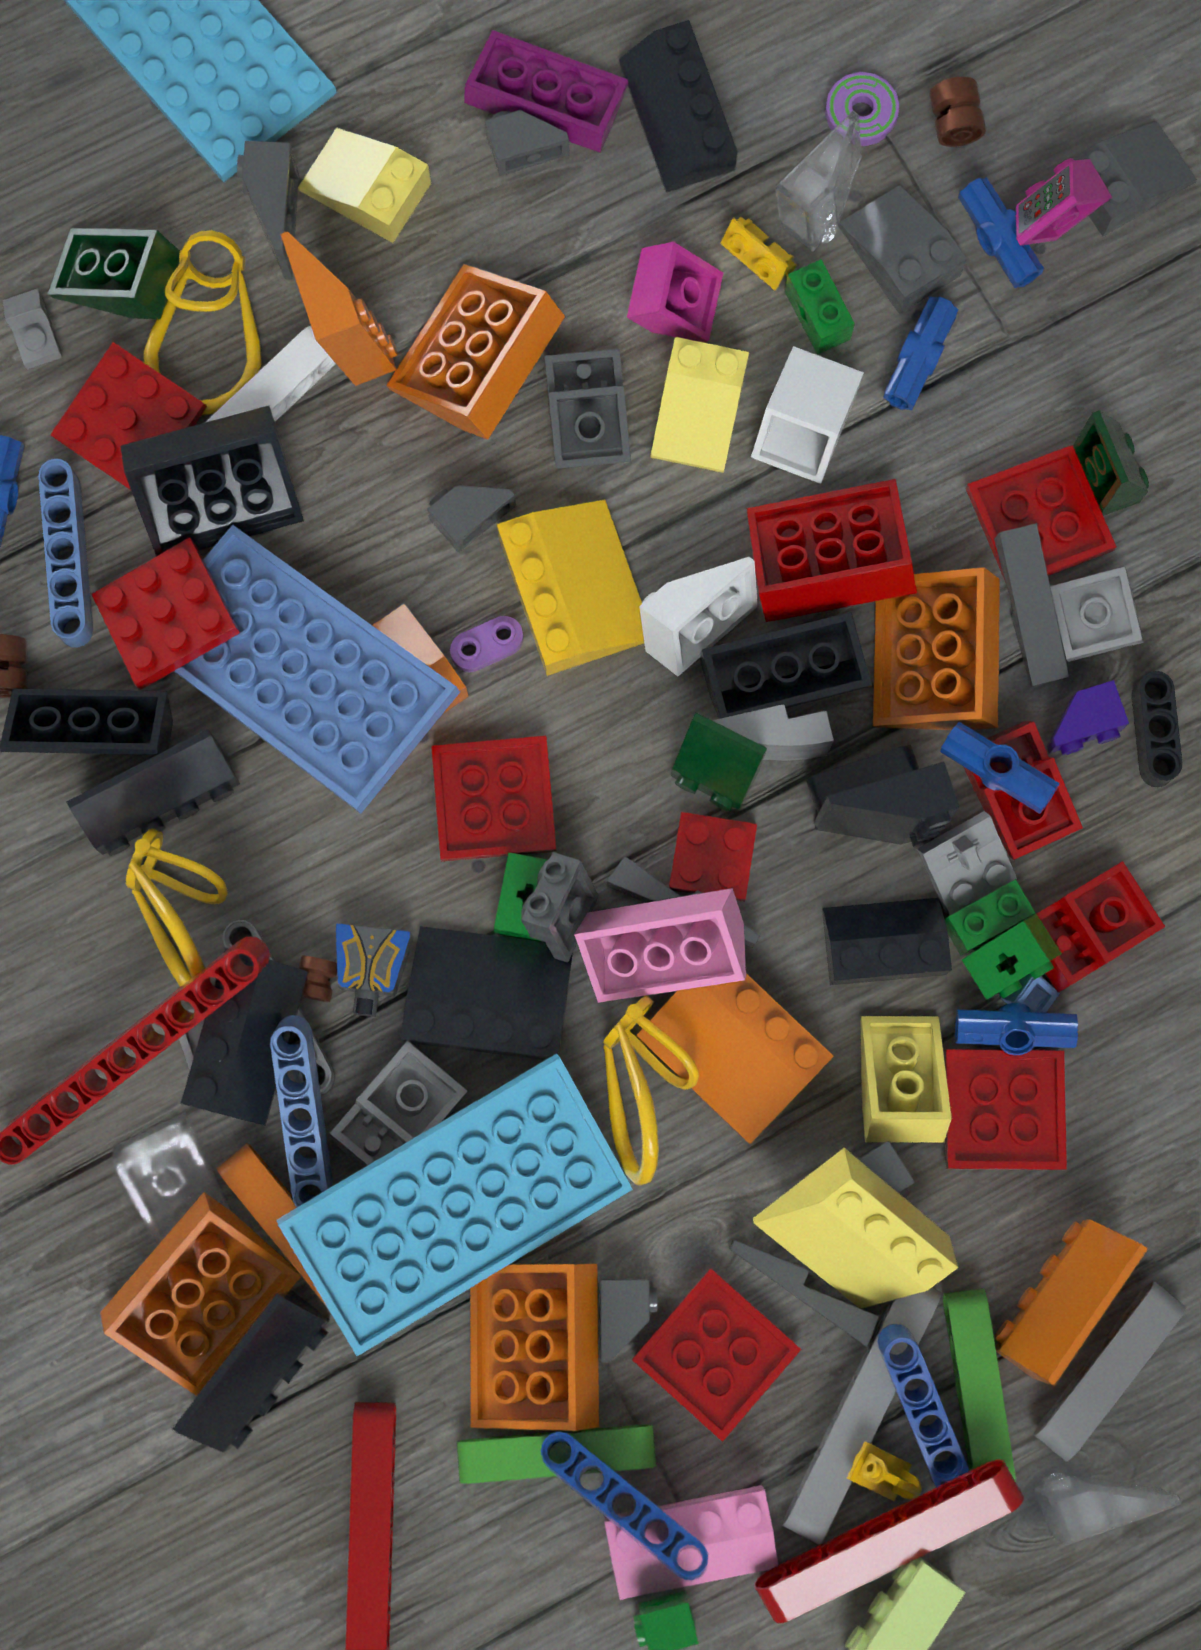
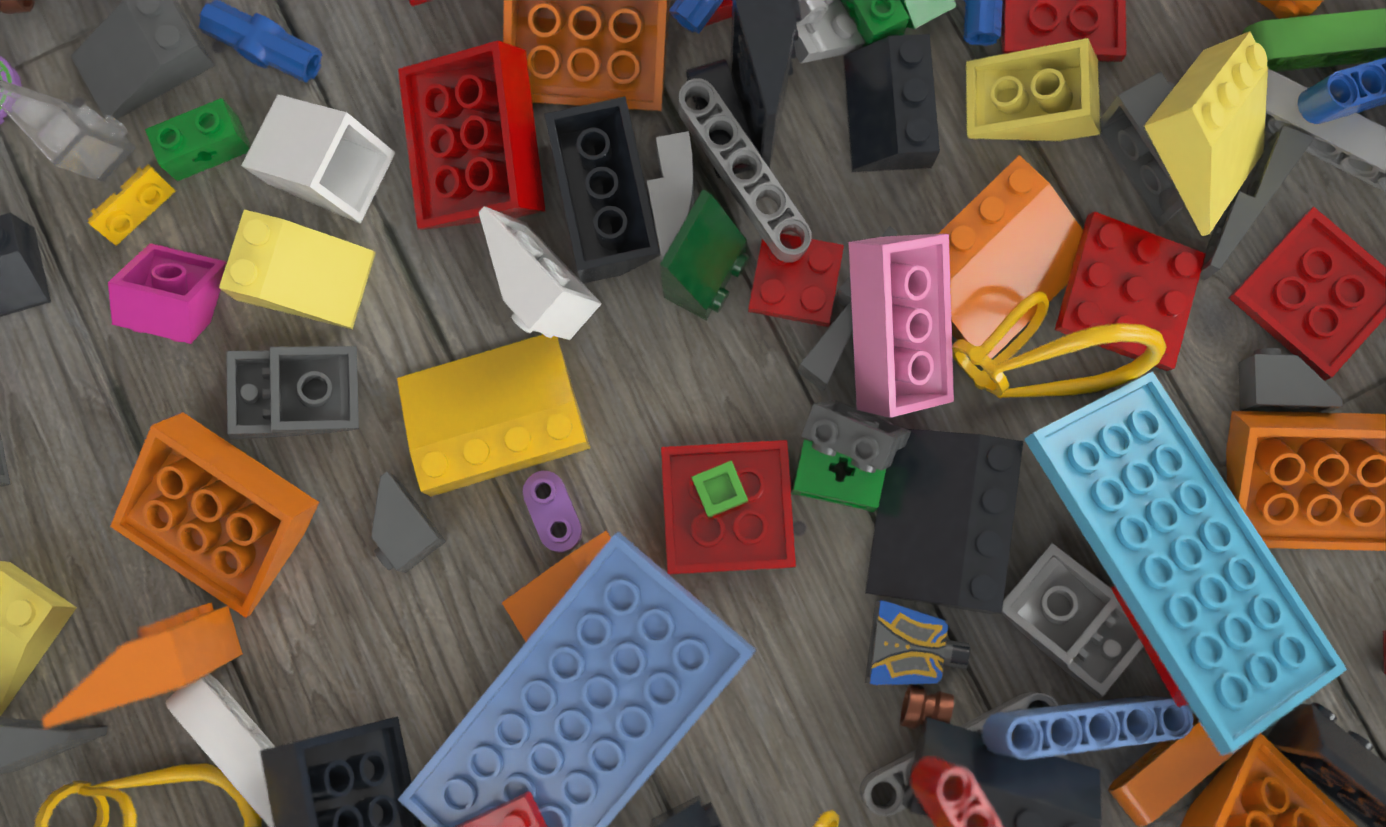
camera: 85 degrees left, 0 degrees up
(506, 786) = (719, 489): none -> bright green plate
(711, 1170) = (1130, 279): none -> red plate
(813, 779) = (742, 151): none -> light grey beam

